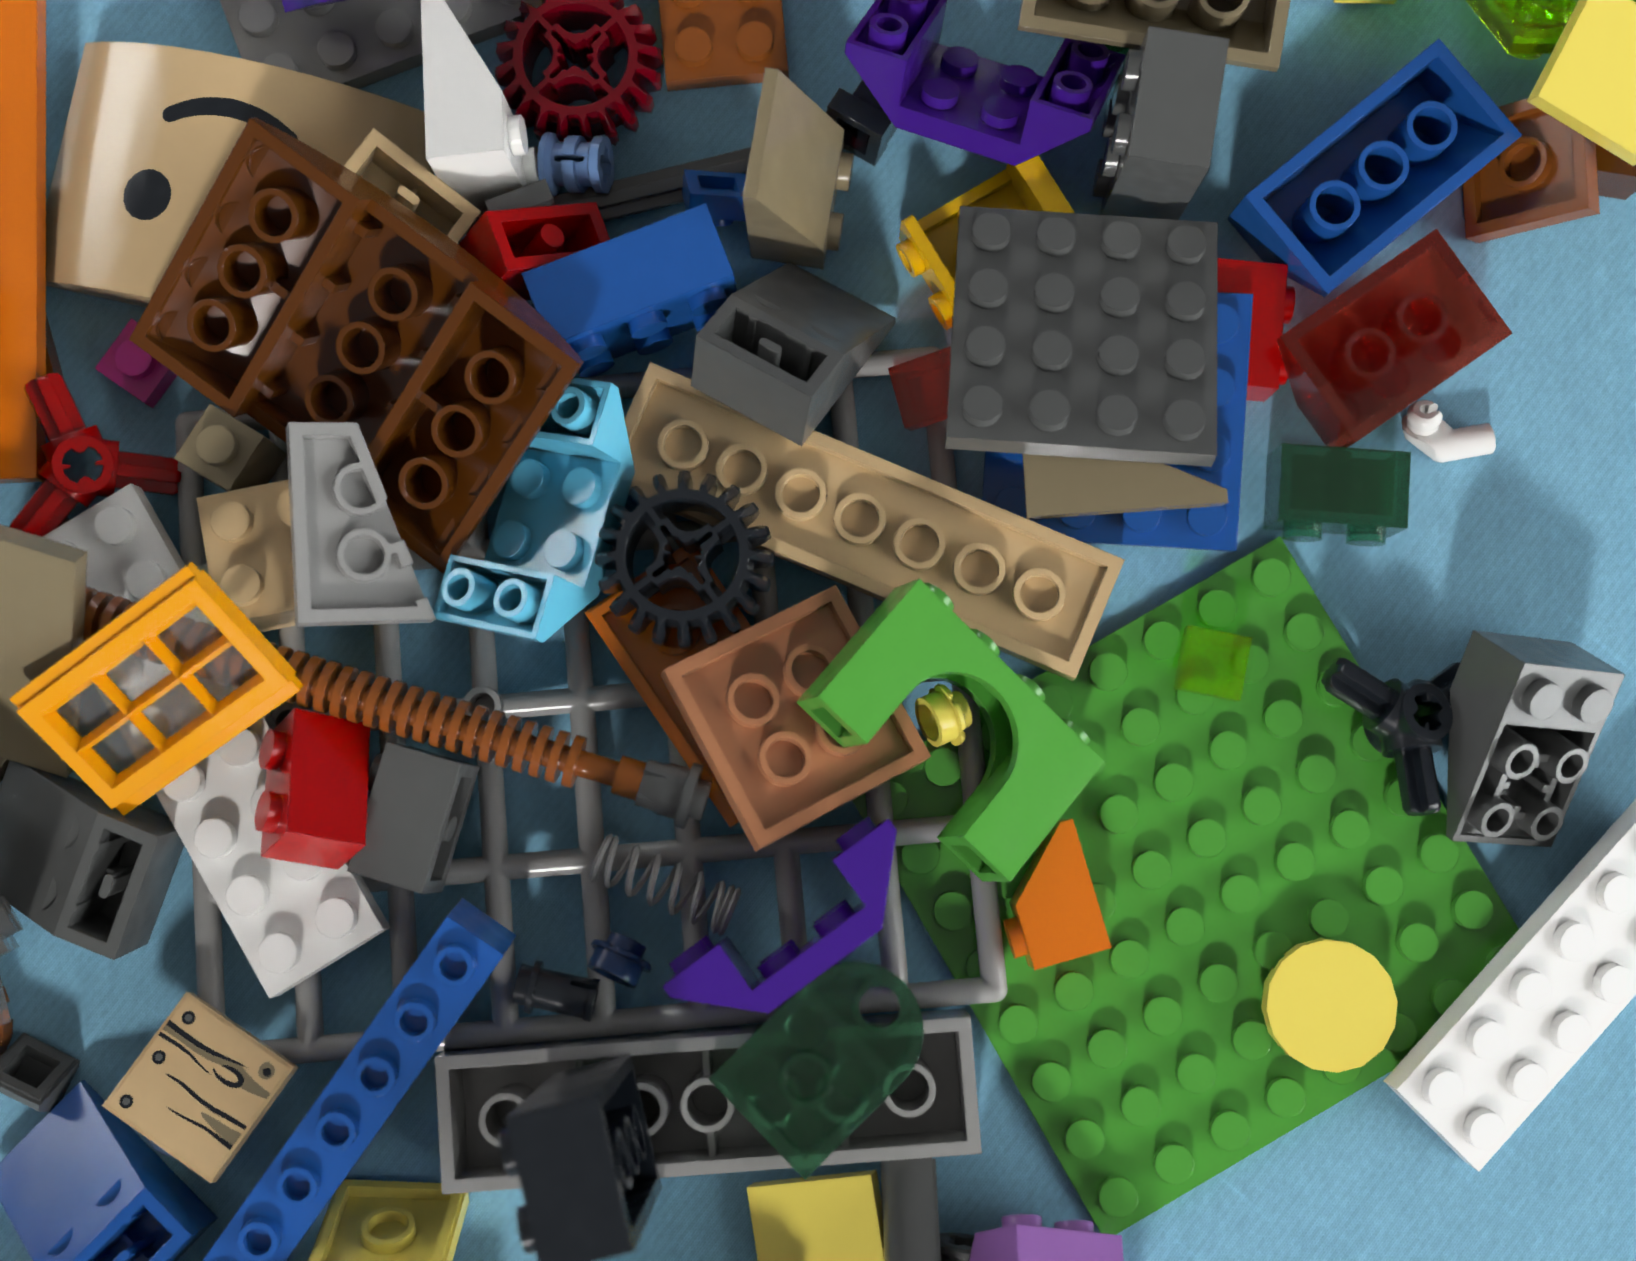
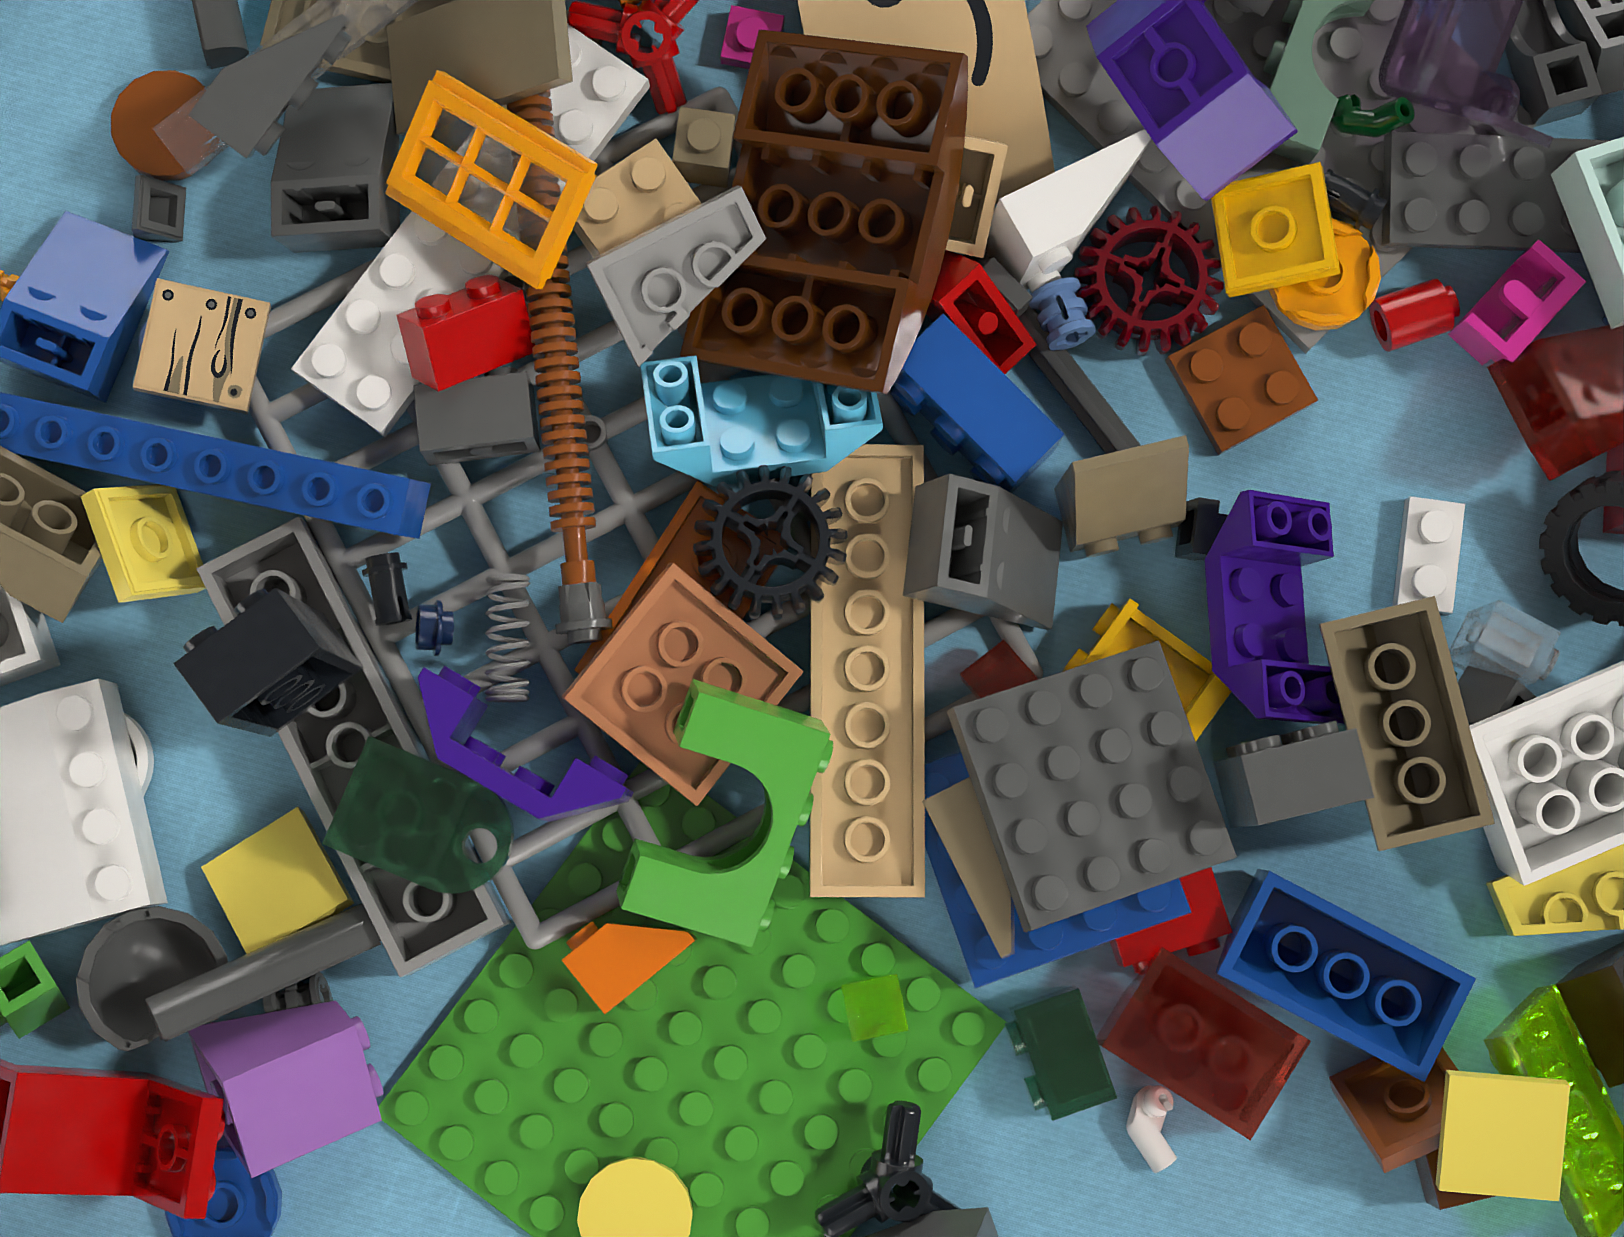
camera: 60 degrees right, 0 degrees up
(719, 191) = (1085, 435): blue plate -> none
(943, 716) = (735, 803): light yellow plate -> none

